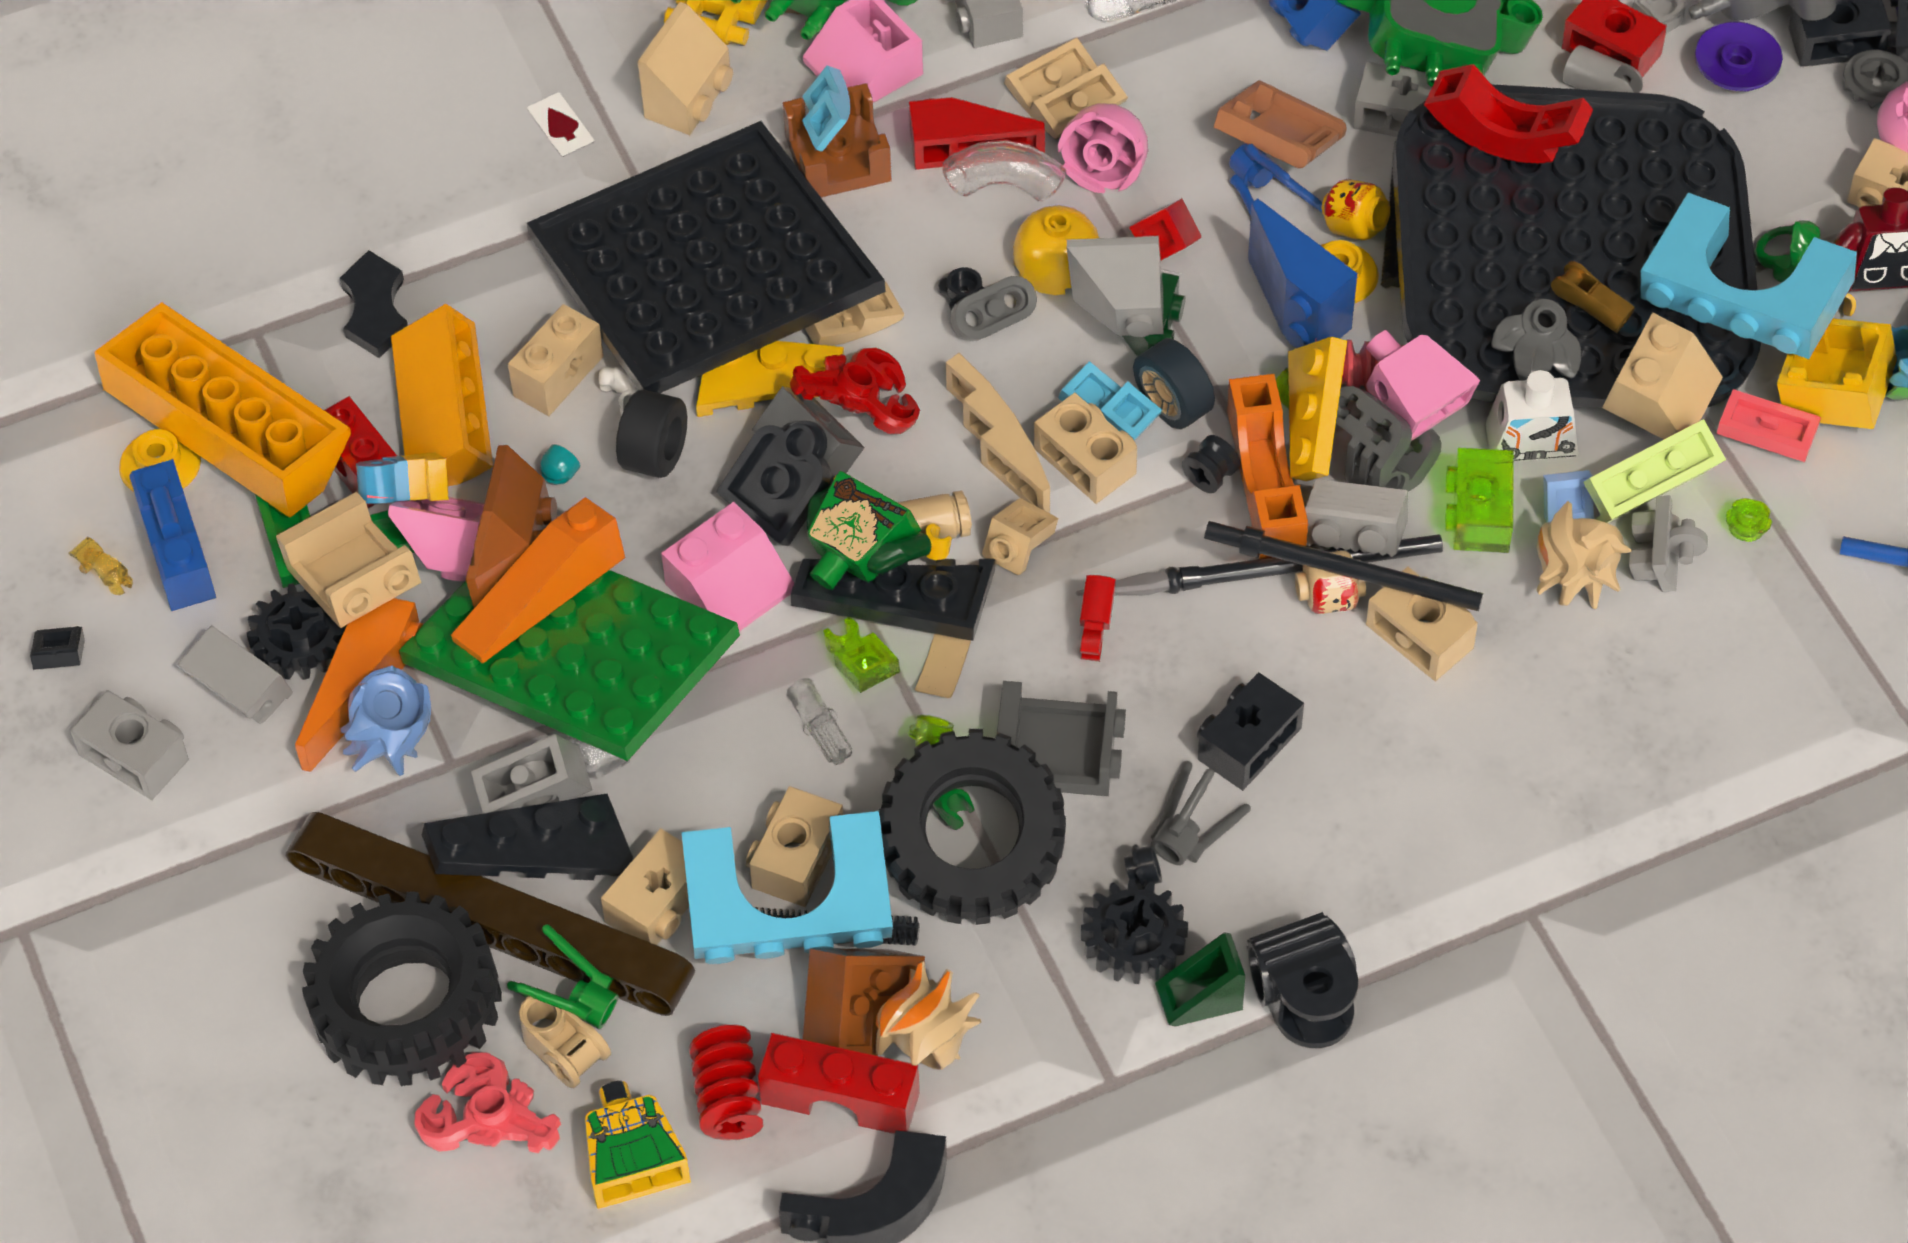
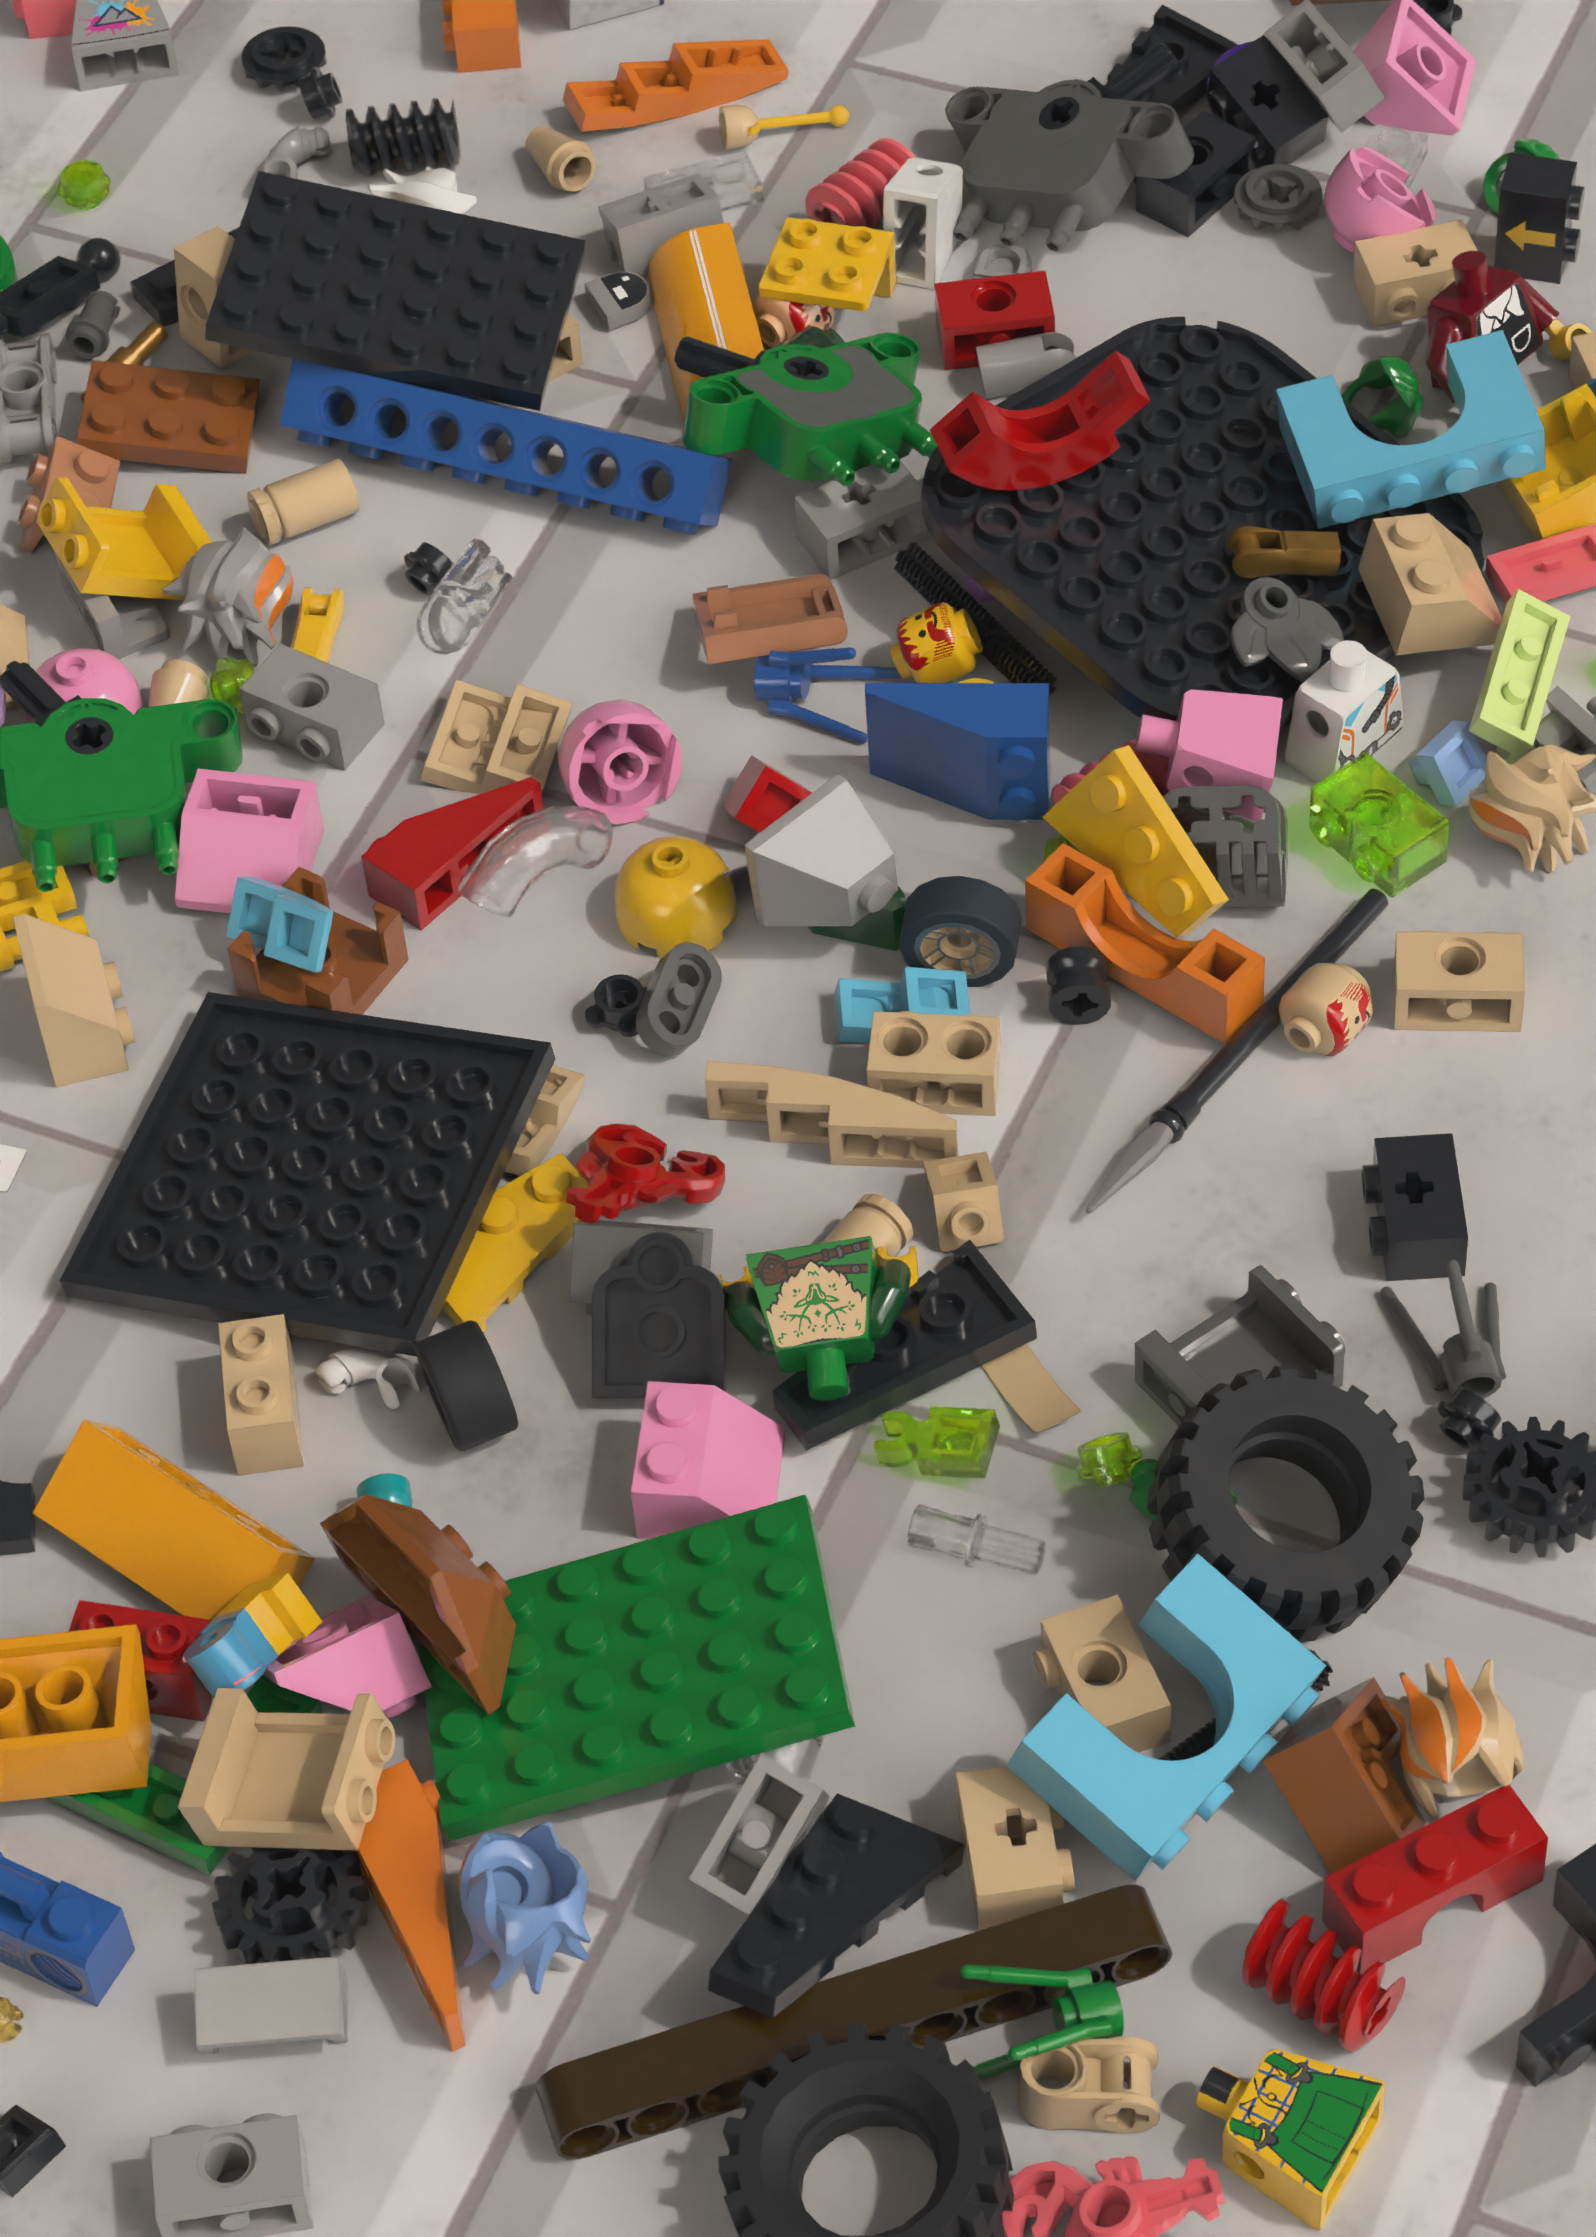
camera: 40 degrees left, 5 degrees down
(550, 572) = (540, 1618): orange slope -> none
(1096, 614) = (1140, 1214): red bar -> none
(1254, 542) = (1232, 1016): black bar -> none
(1356, 517) = (1292, 921): light grey brick -> none
(1738, 56) = (1133, 259): dark purple dish -> none

